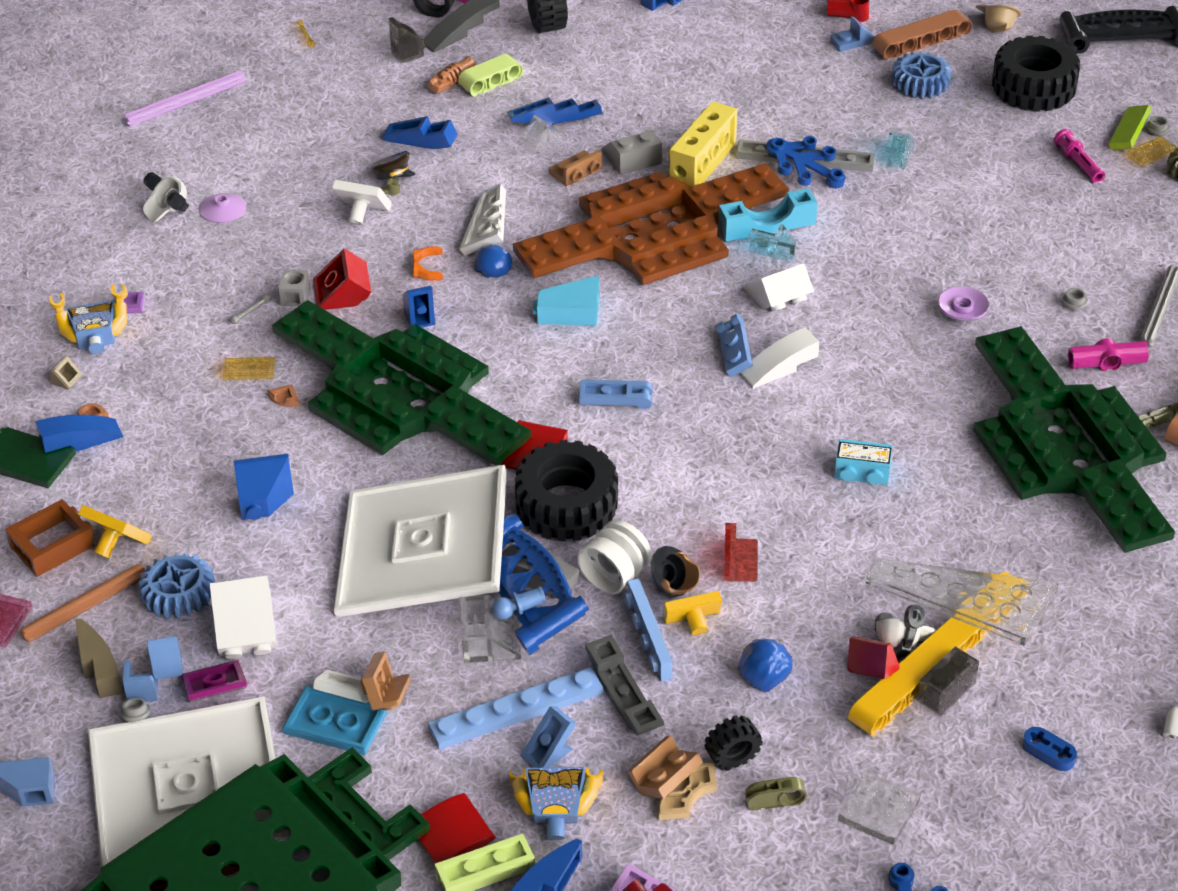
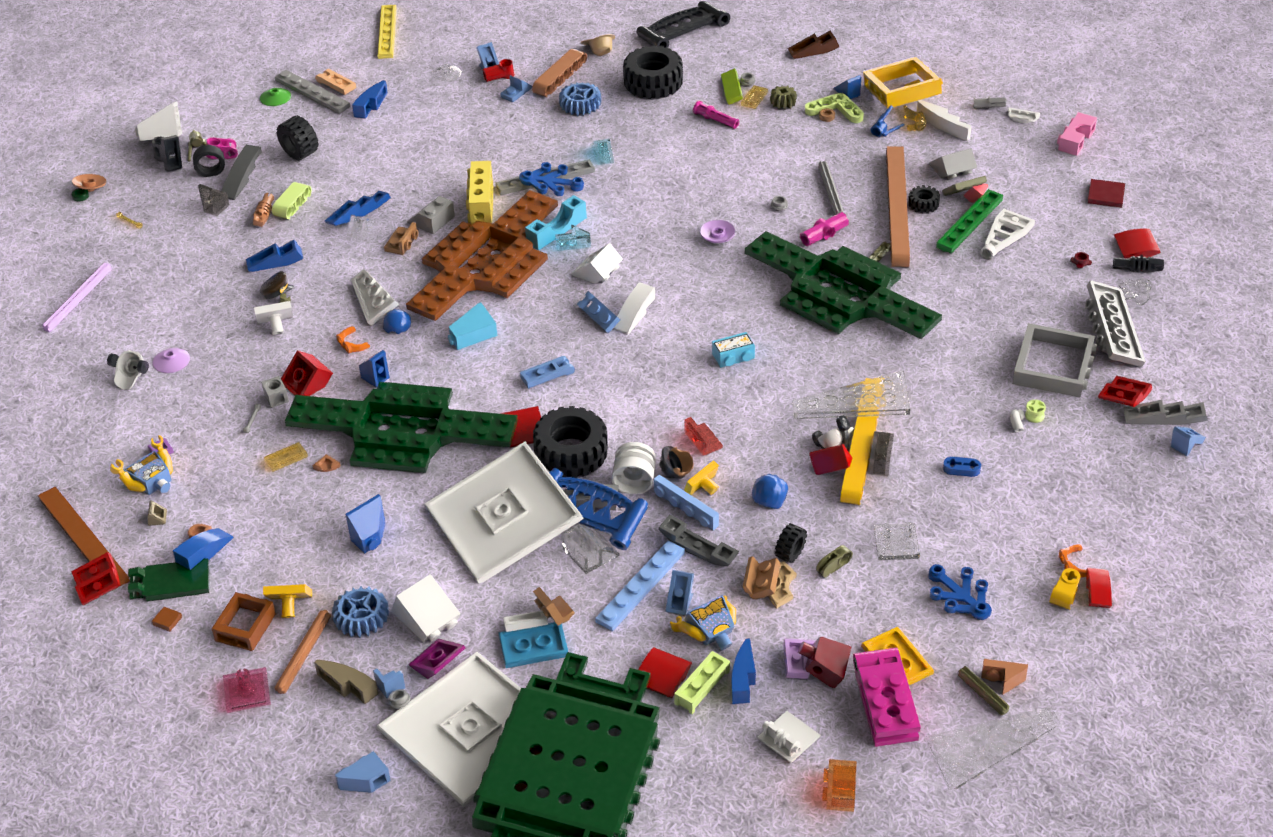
camera: 30 degrees left, 0 degrees up
(165, 657) = (396, 656): medium blue slope -> none
(503, 607) = (602, 520): medium blue pin -> none

